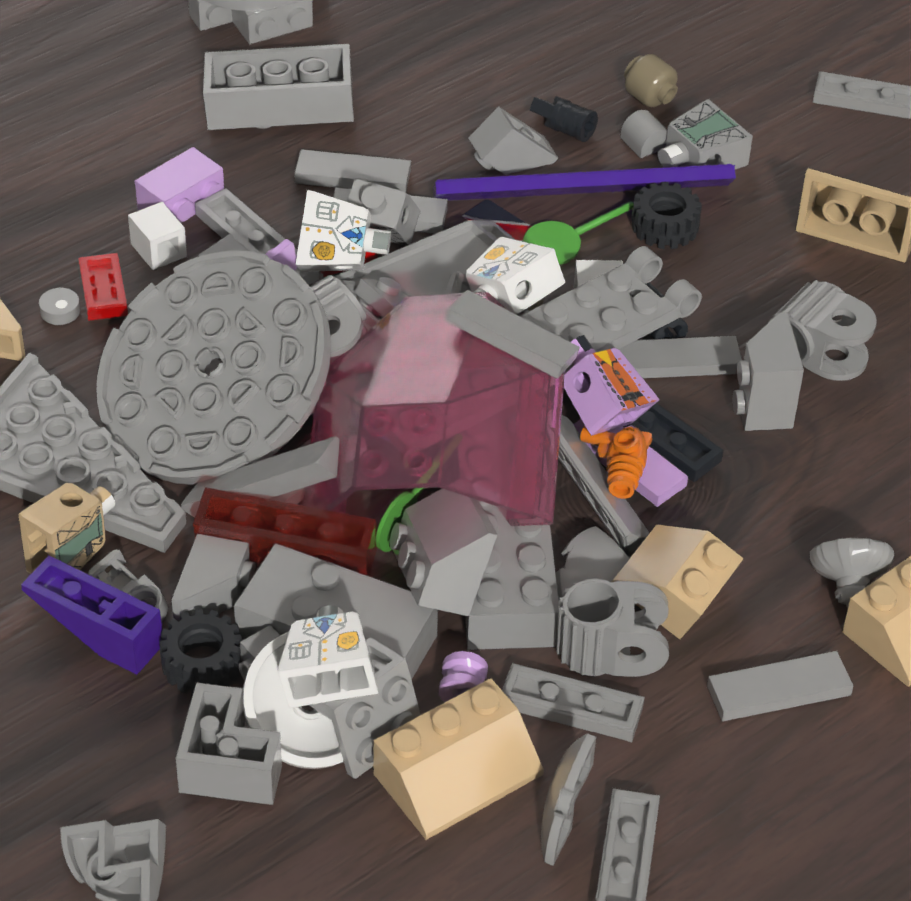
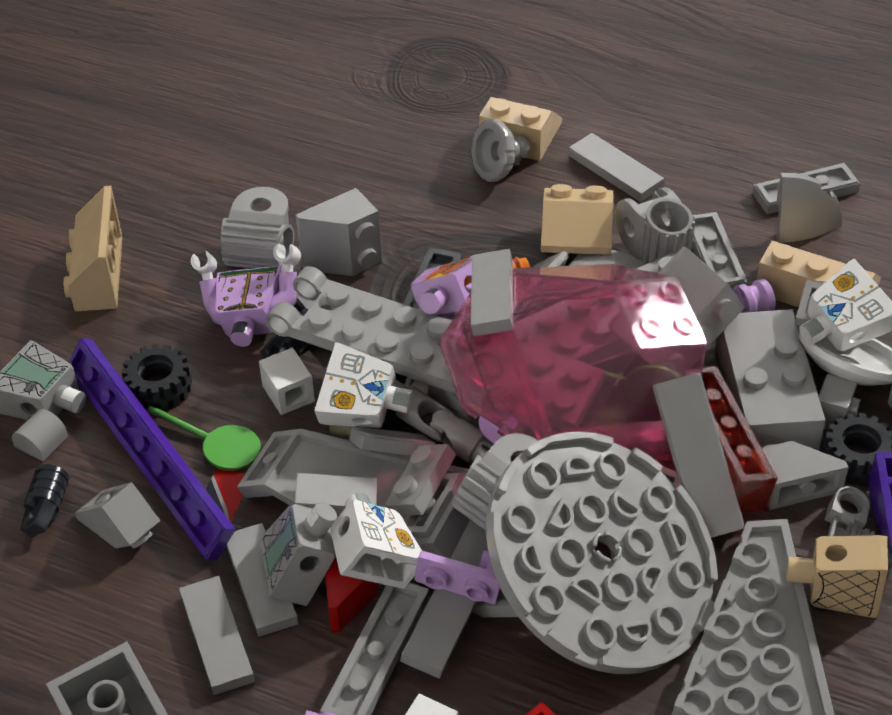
camera: 115 degrees left, 0 degrees up
(422, 255) = (332, 489): none -> light grey tile
(731, 289) = (245, 297): none -> lavender torso

